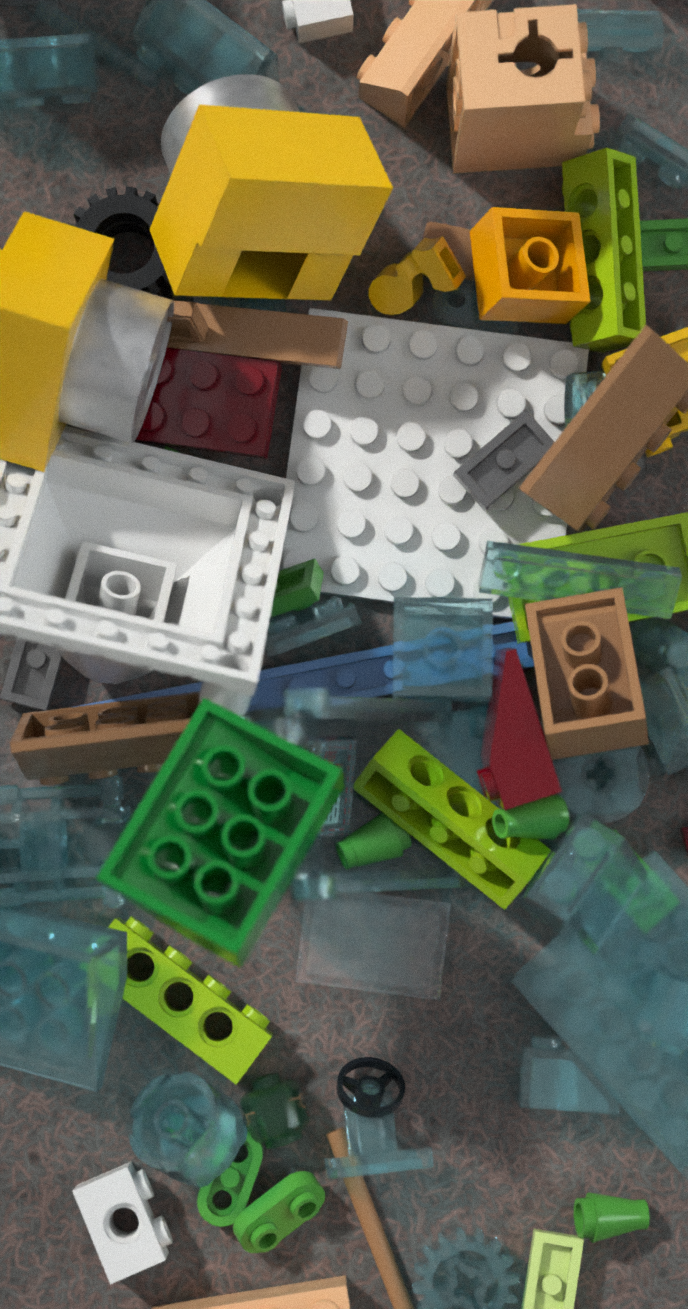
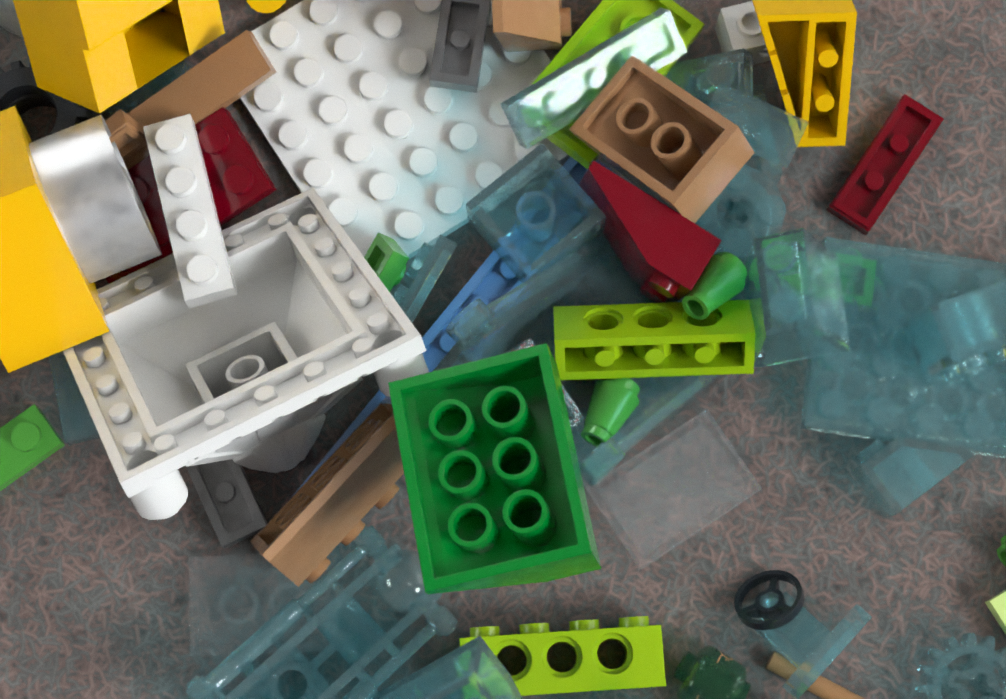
camera: 35 degrees left, 5 degrees down
(182, 425) = (189, 211): none -> white plate

